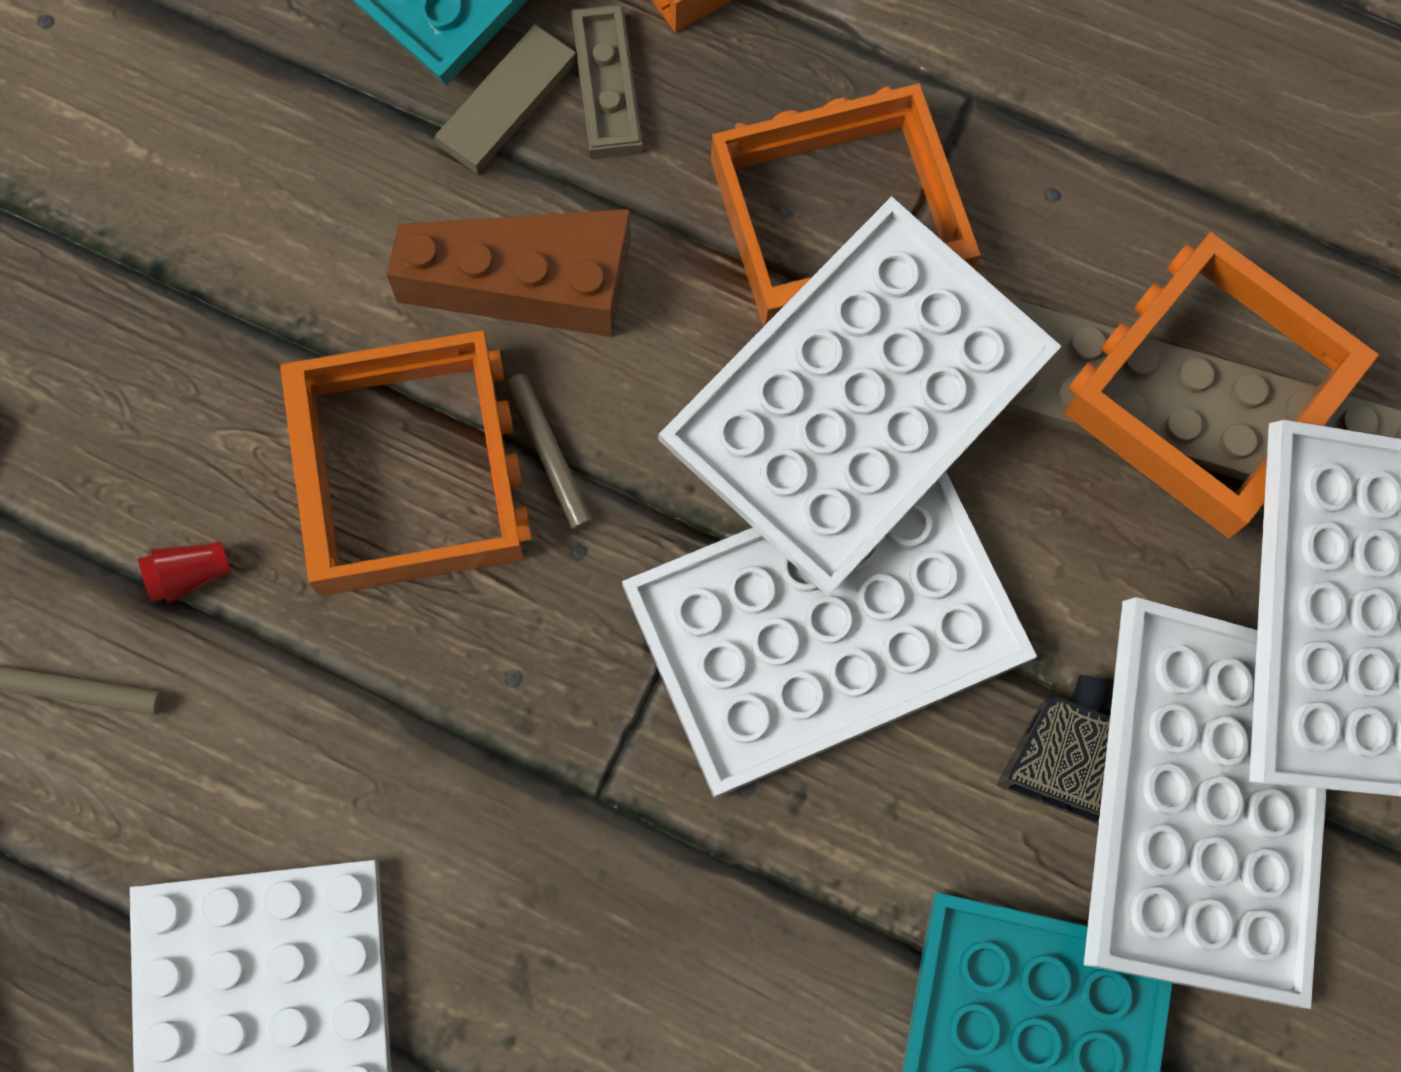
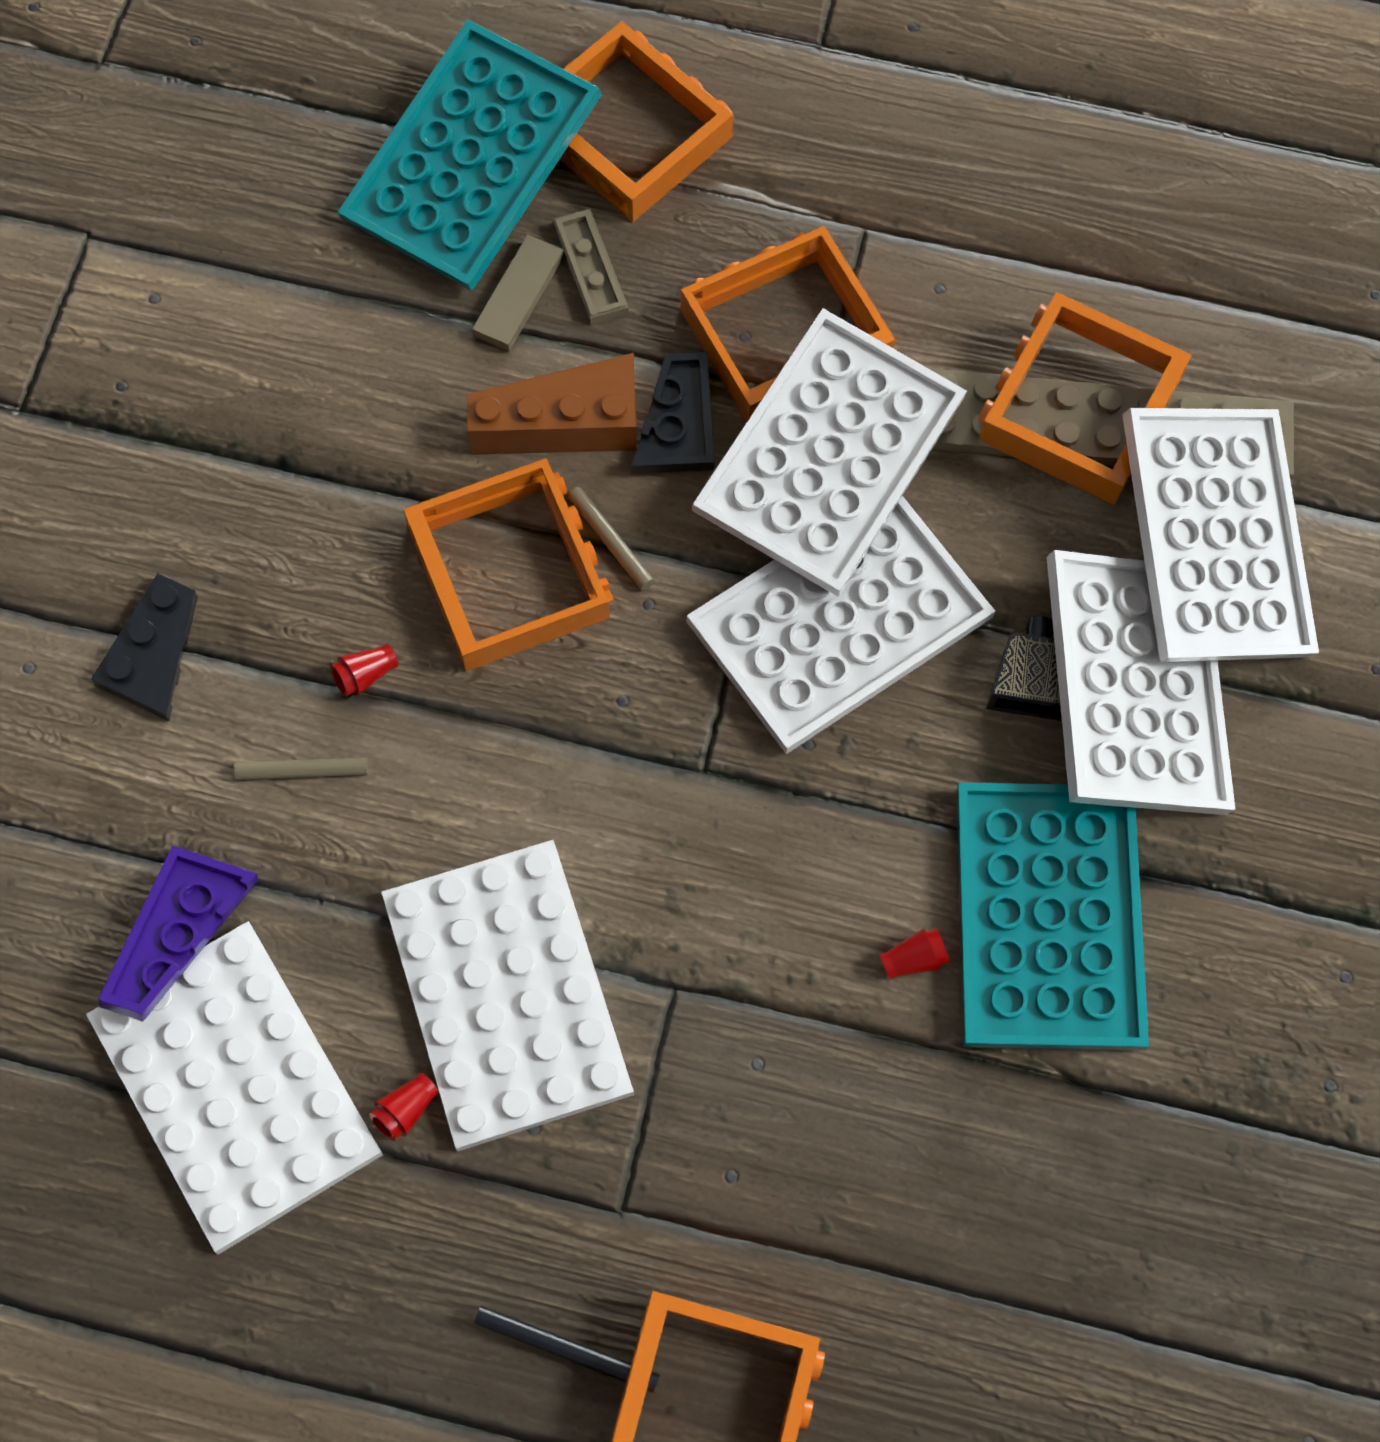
camera: 10 degrees left, 5 degrees down
(674, 310) = (679, 419): none -> black wing

